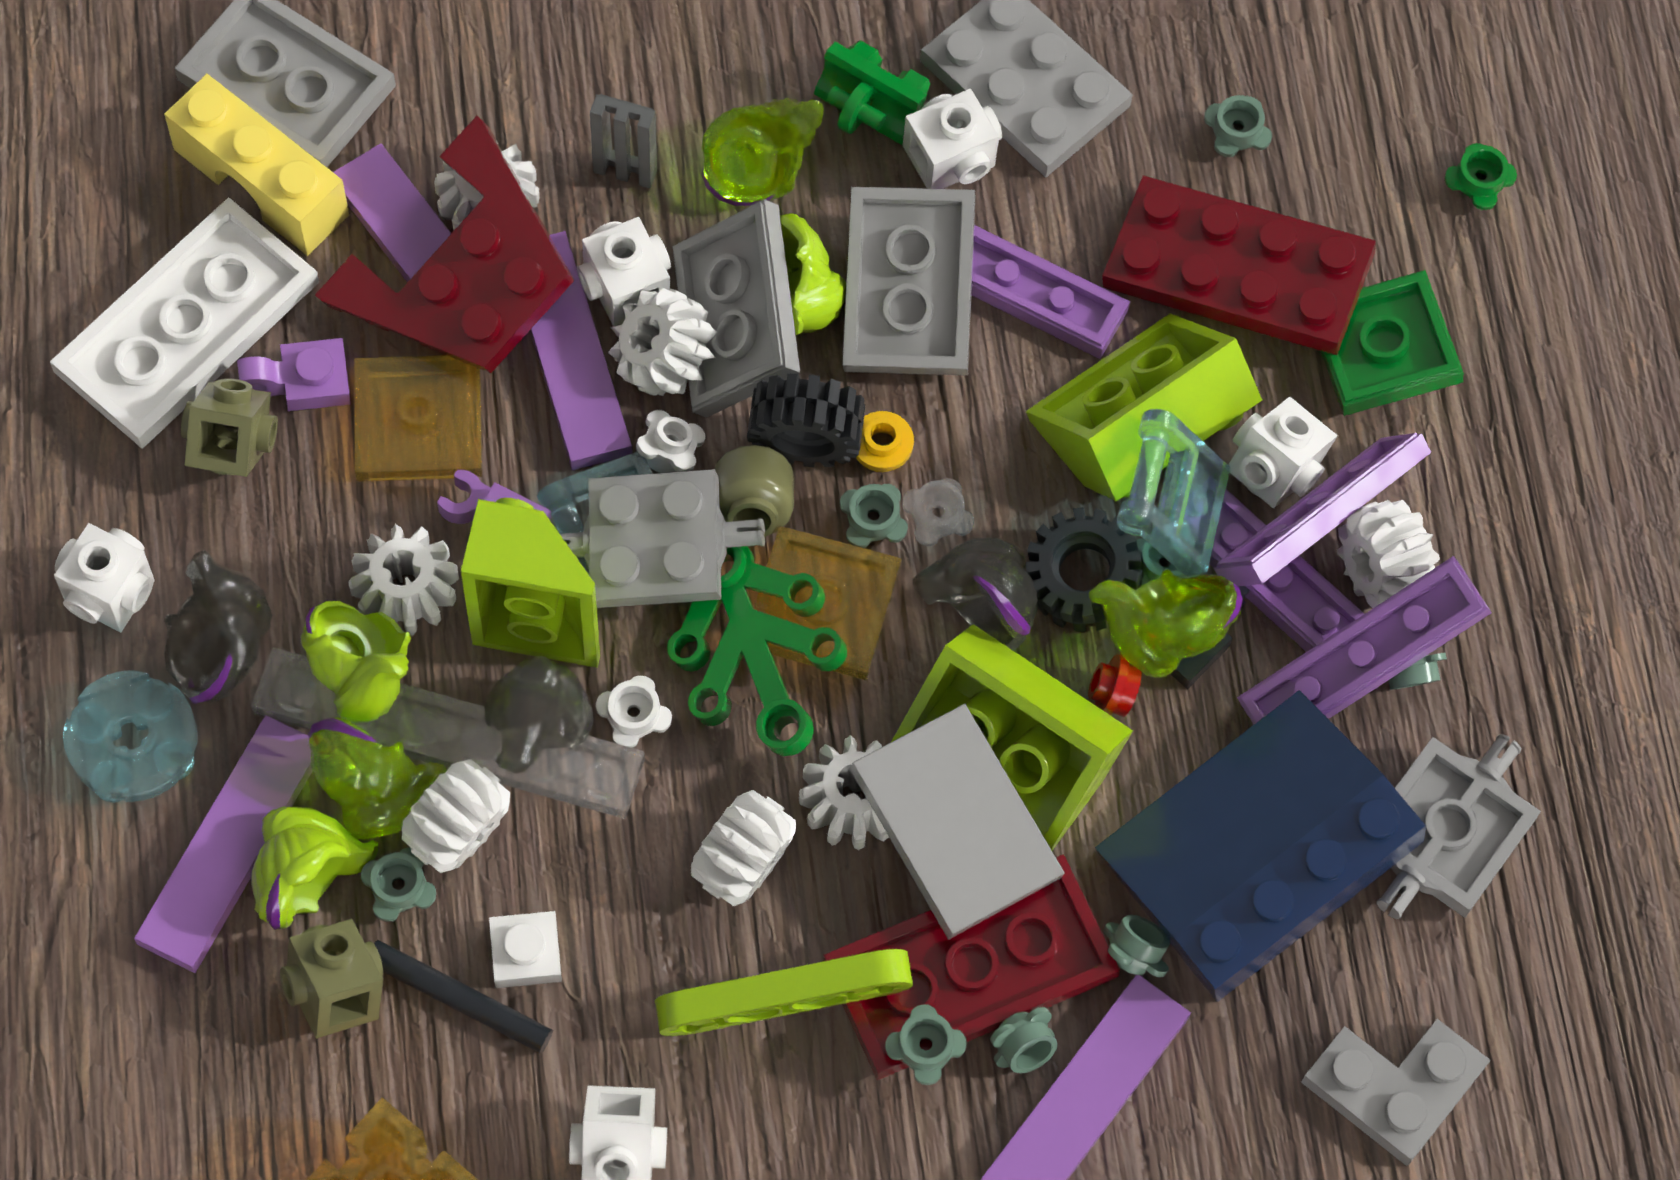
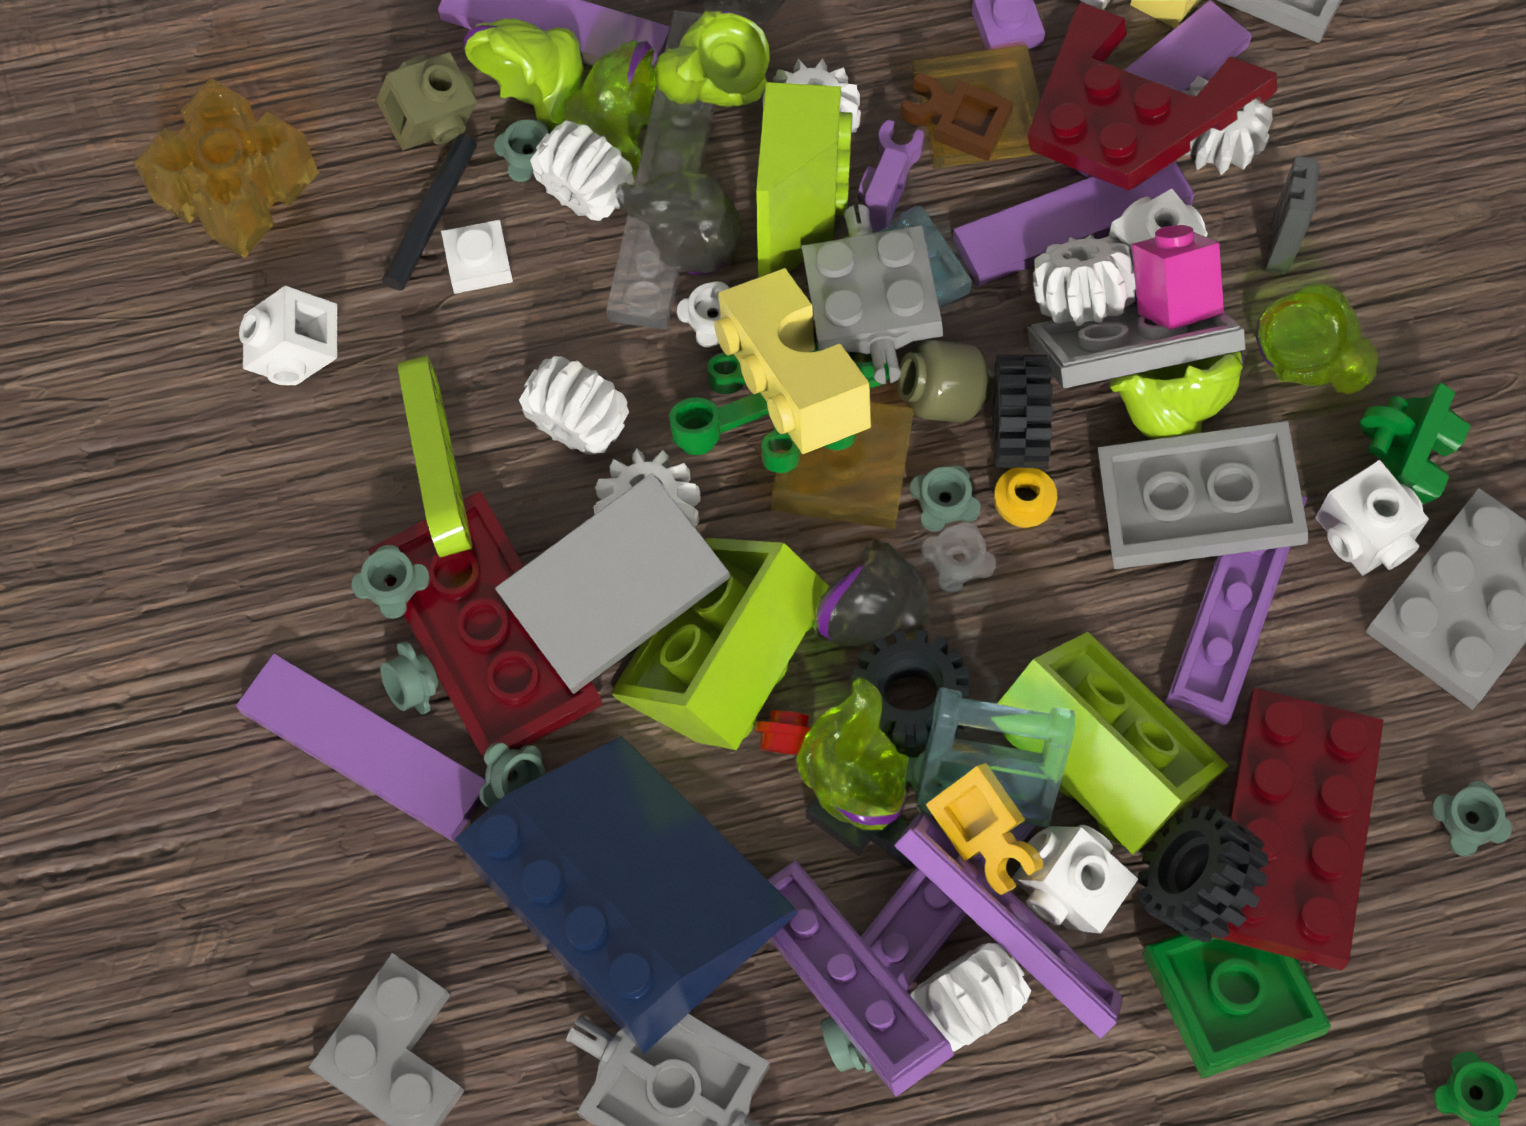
camera: 90 degrees right, 0 degrees up
(452, 421) = (964, 120): none -> reddish brown plate
(669, 443) = (973, 316): white plate -> none
(693, 249) = (1178, 277): none -> dark pink brick
(780, 609) = (772, 335): none -> light yellow arch
(1238, 508) = (980, 819): none -> yellow plate
(1316, 316) = (1203, 874): none -> black tyre

